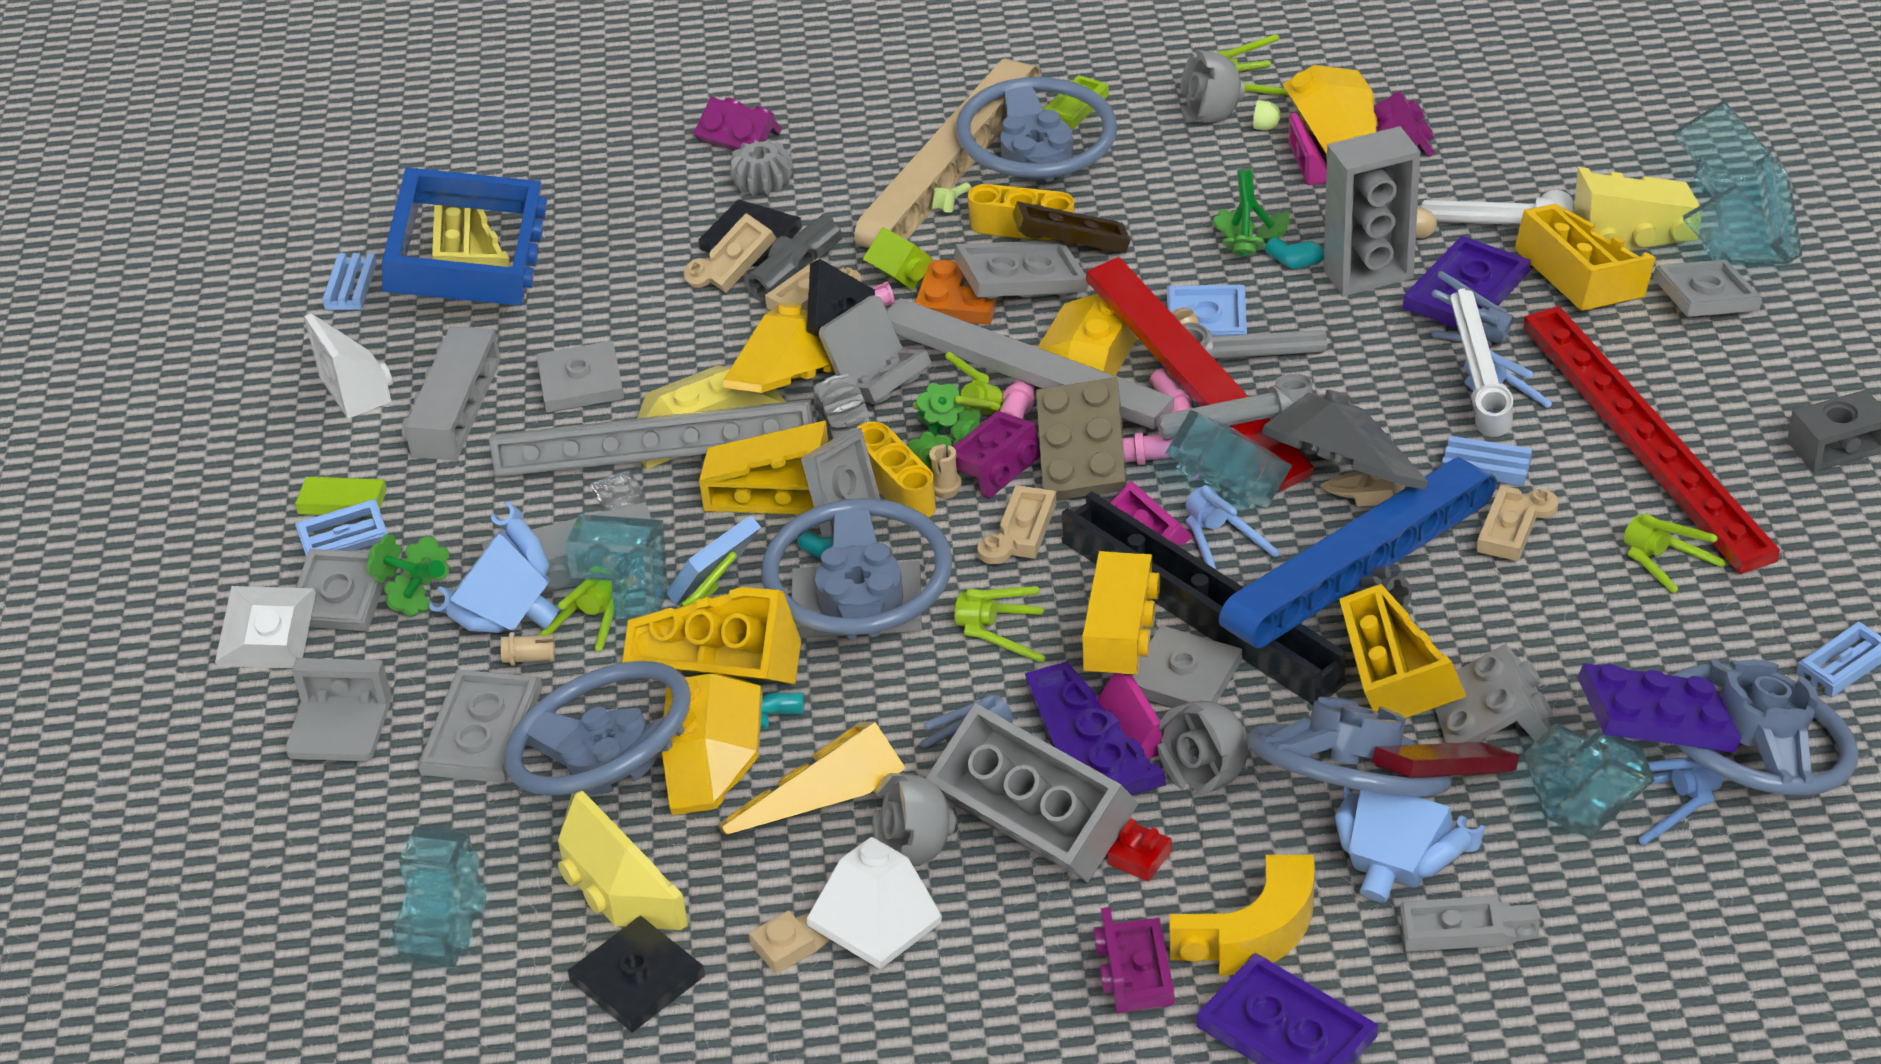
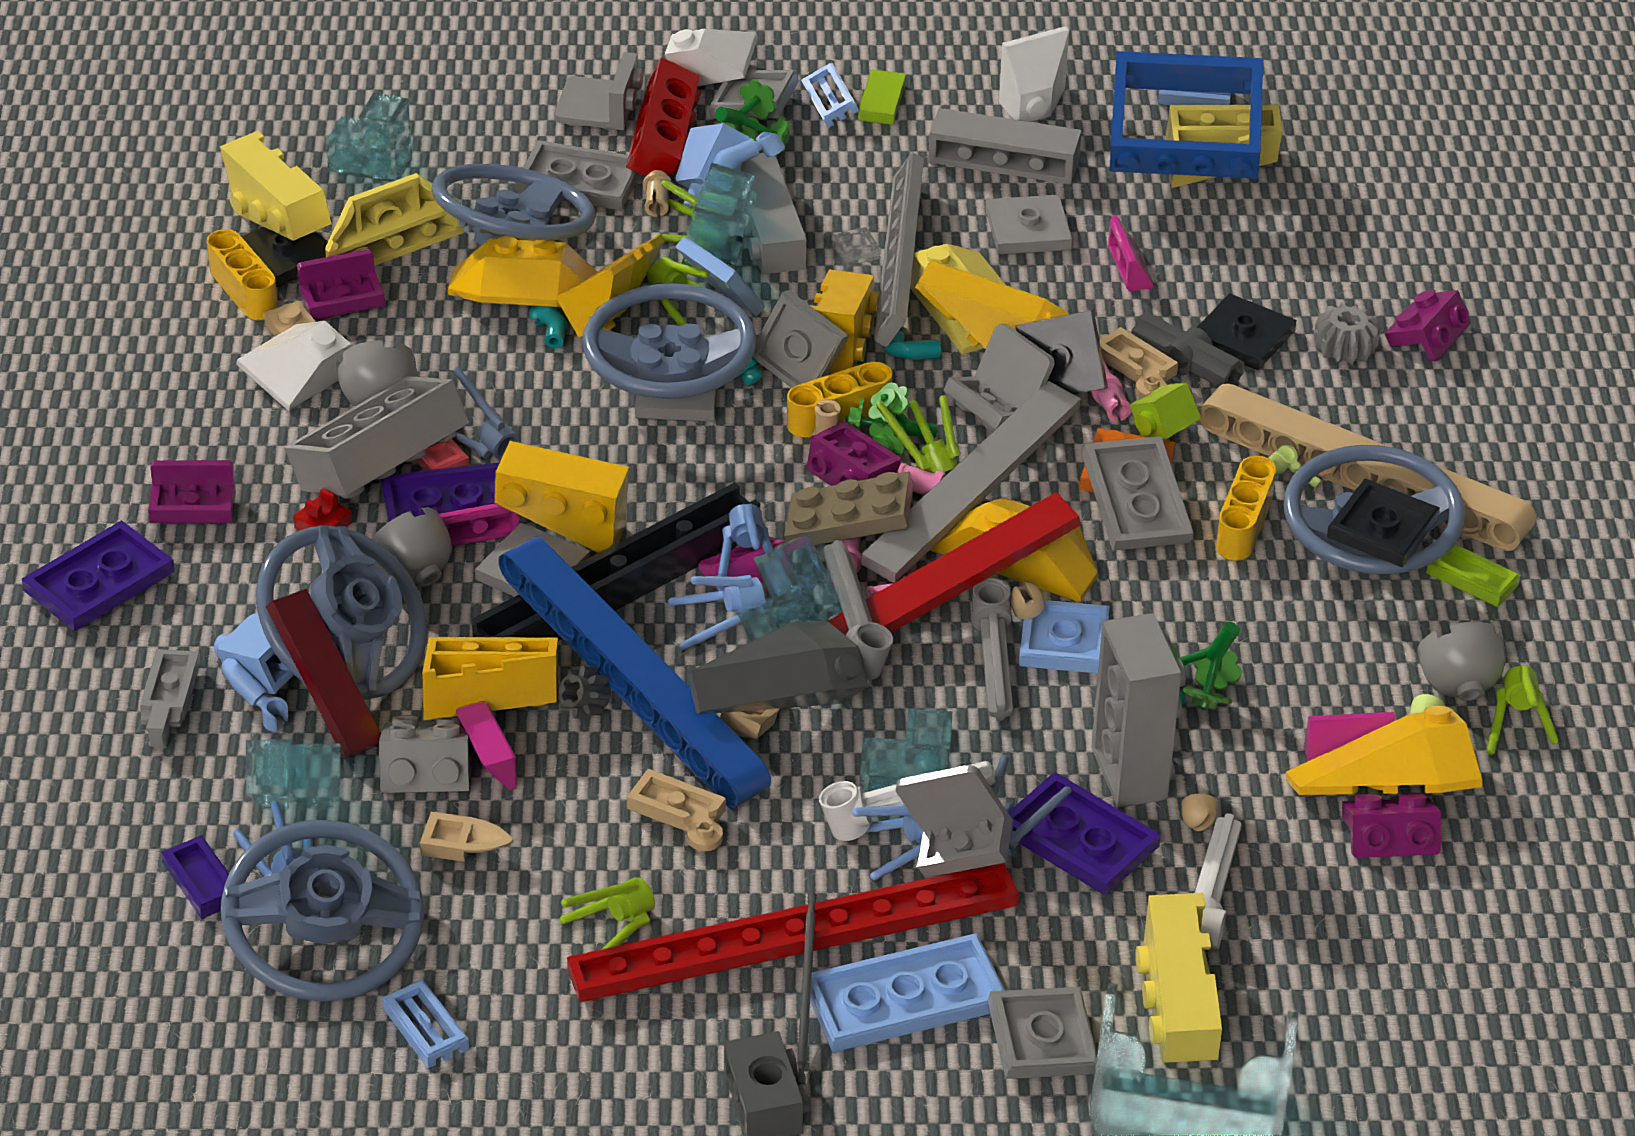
camera: 90 degrees right, 0 degrees up
(409, 644) = (664, 119): none -> red brick
(568, 962) = (271, 191): none -> light yellow wedge
(640, 303) = (1128, 257): none -> dark pink slope
(703, 992) = (241, 273): none -> yellow beam
(728, 893) = (340, 284): none -> magenta bracket
(731, 256) = (1190, 307): tan hinge -> none
(840, 404) = (924, 361): light grey gear -> none
(842, 771) = (448, 343): yellow wedge -> none
(977, 609) = (635, 443): lime plant -> none
(1021, 526) = (755, 477): tan hinge -> none
(1071, 228) = (1198, 530): dark brown plate -> none
(1078, 104) = (1383, 522): none -> black plate
(1138, 491) = (747, 530): none -> medium blue plant
(1265, 927) = (208, 579): yellow arch -> none
(1431, 367) = (923, 751): none -> clear light blue brick
(1482, 641) = (489, 742): none -> dark pink slope
(1504, 461) = (794, 785): light blue tile -> none
(1527, 318) = (959, 820): none -> light grey bracket
(1580, 261) = (1090, 917): yellow wedge -> none
(1606, 645) = (455, 836): none -> tan plate
(1646, 411) = (806, 988): none -> dark grey piece
(1658, 707) = (319, 793): dark purple plate -> none
(1684, 373) = (903, 992): none -> light blue tile
(1717, 854) = (197, 874): none -> dark purple tile

